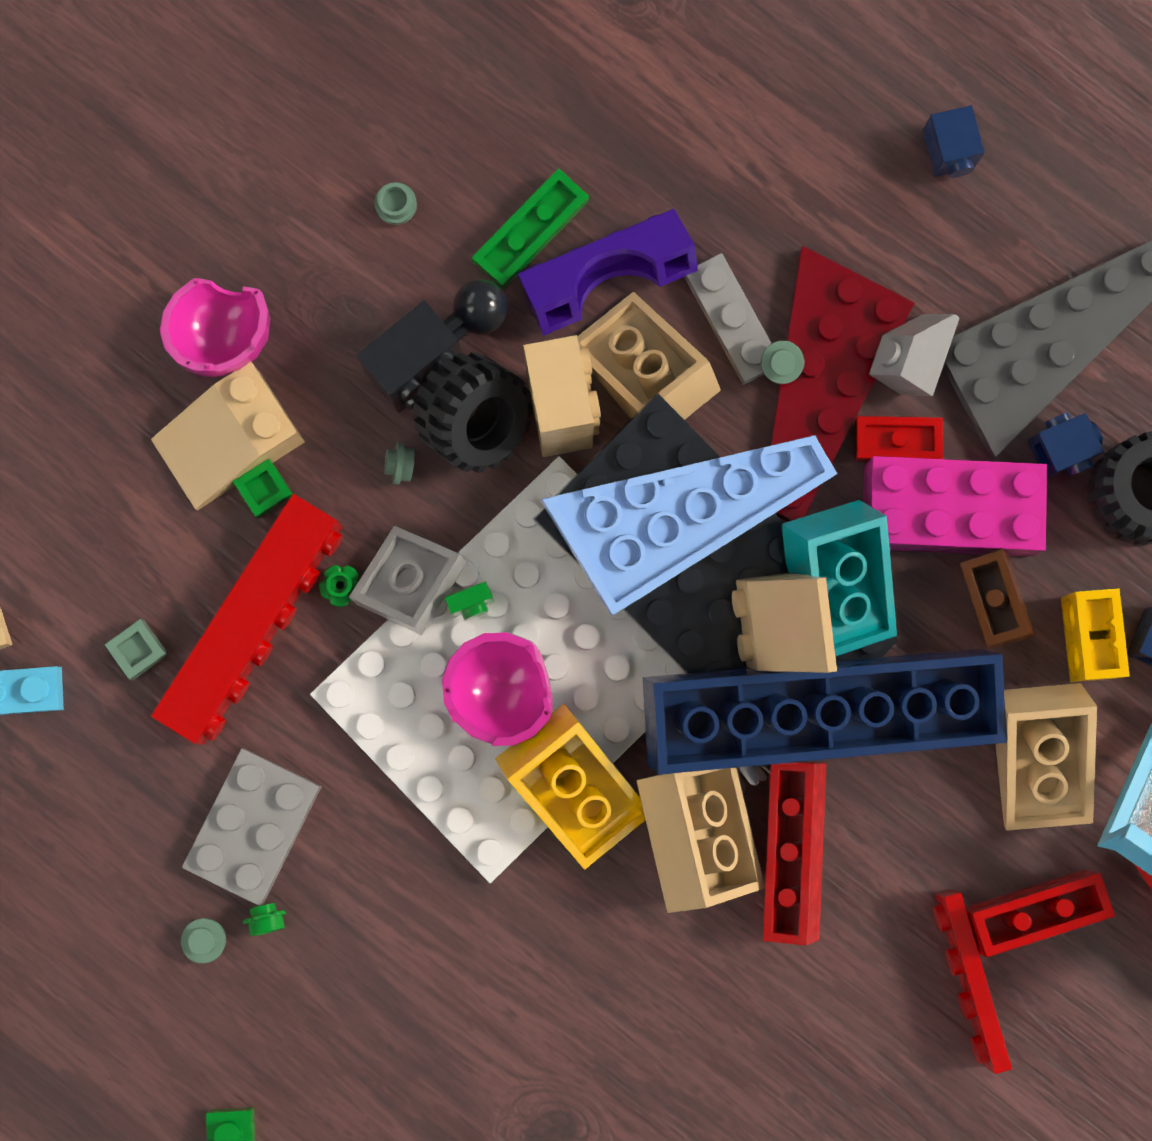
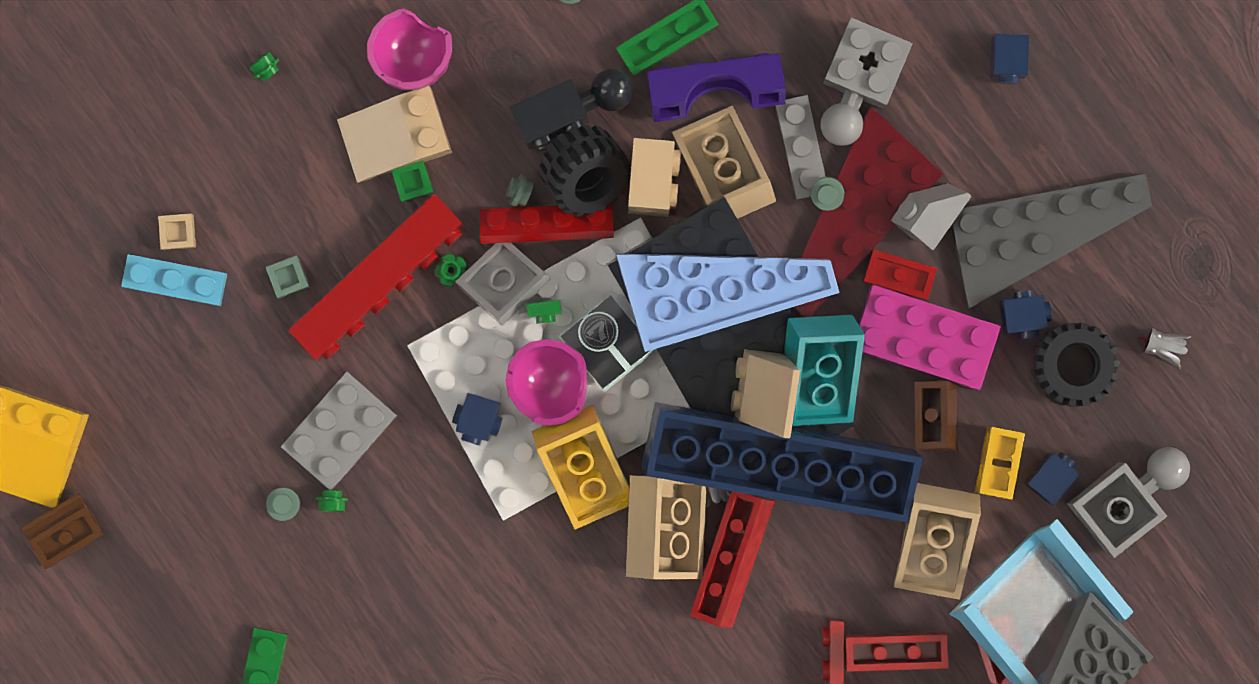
camera: 20 degrees right, 5 degrees up
(43, 398) = (264, 67): none -> green plate
(422, 762) = (477, 419): none -> dark blue brick
(441, 497) = (543, 224): none -> red plate
(562, 620) = (607, 342): none -> black slope
(779, 220) = (843, 122): none -> light grey brick

